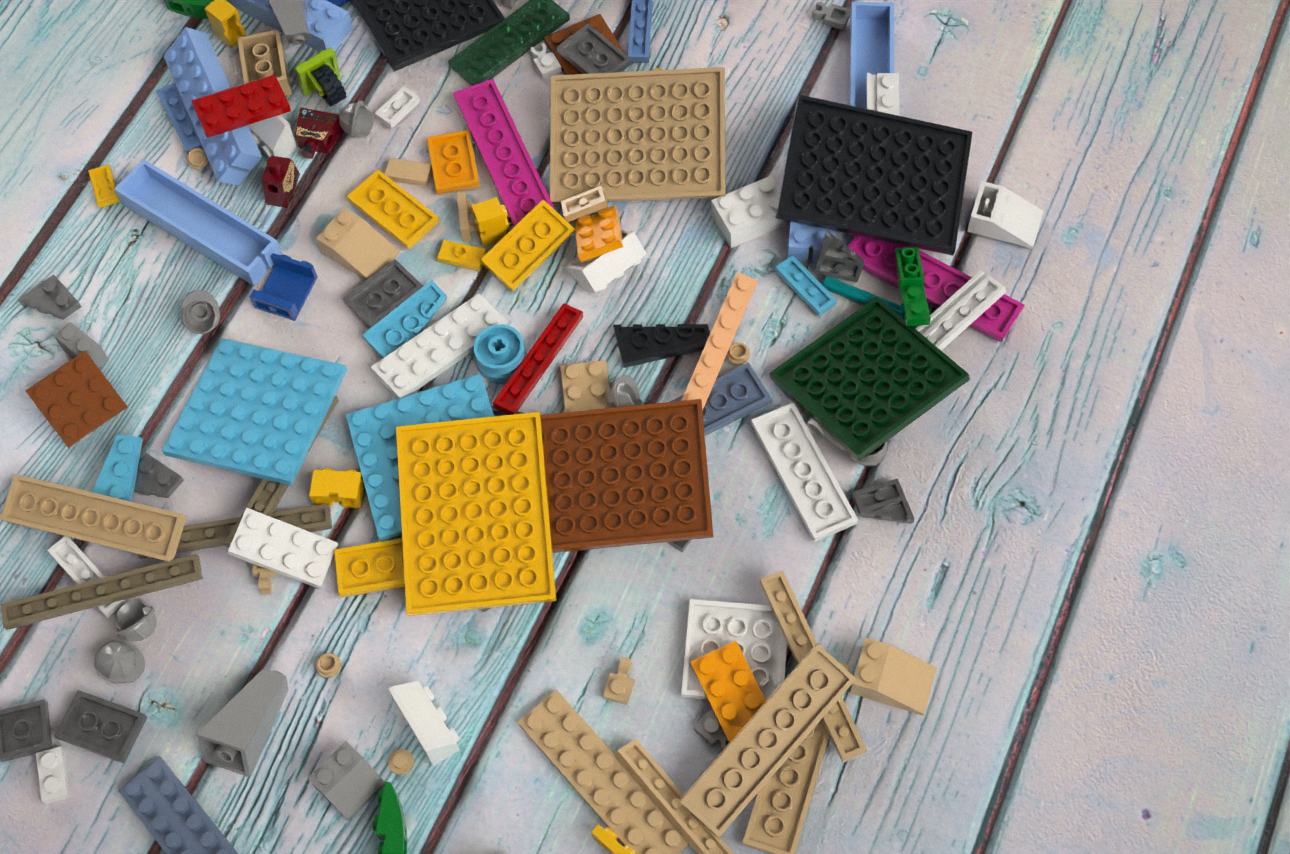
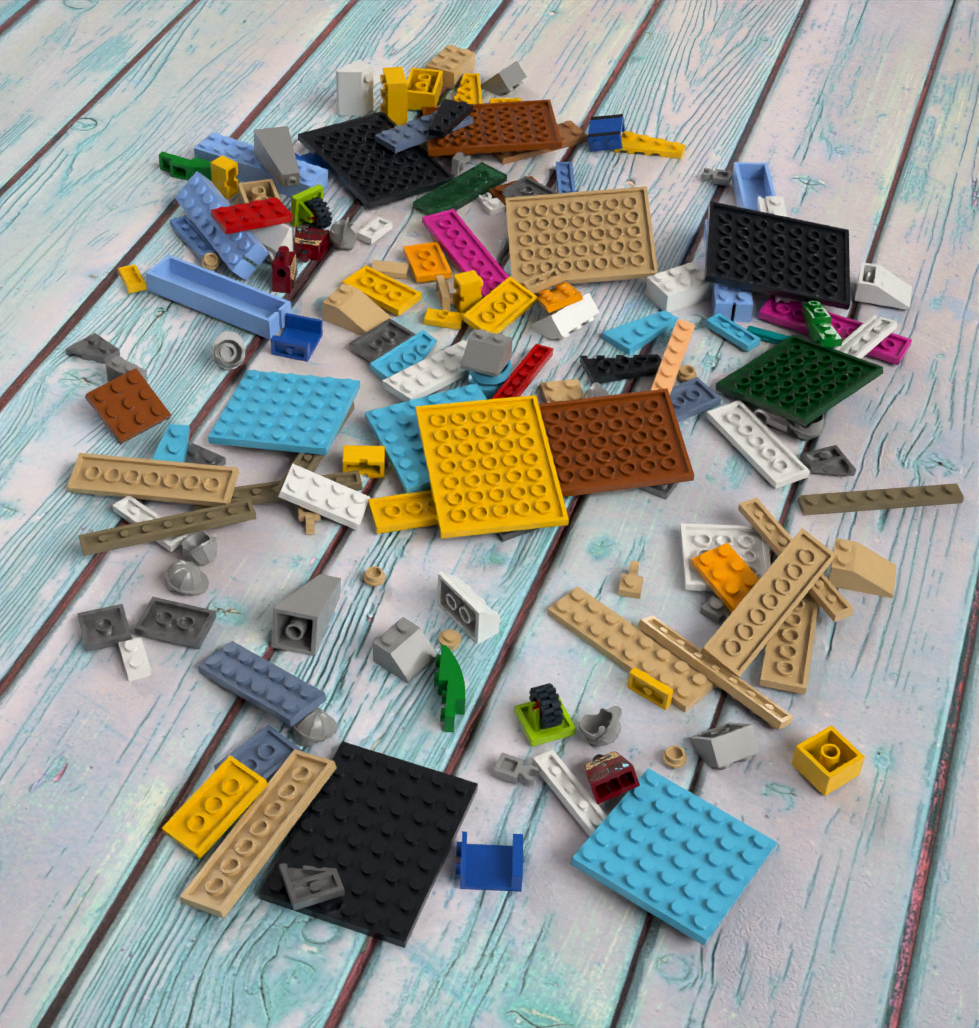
camera: 10 degrees left, 20 degrees down
(492, 339) = (487, 352): none -> light grey slope
(690, 283) = (639, 332): none -> medium azure wing
(838, 260) = (757, 312): flat silver wing -> none
(938, 562) = (880, 499): none -> dark tan plate

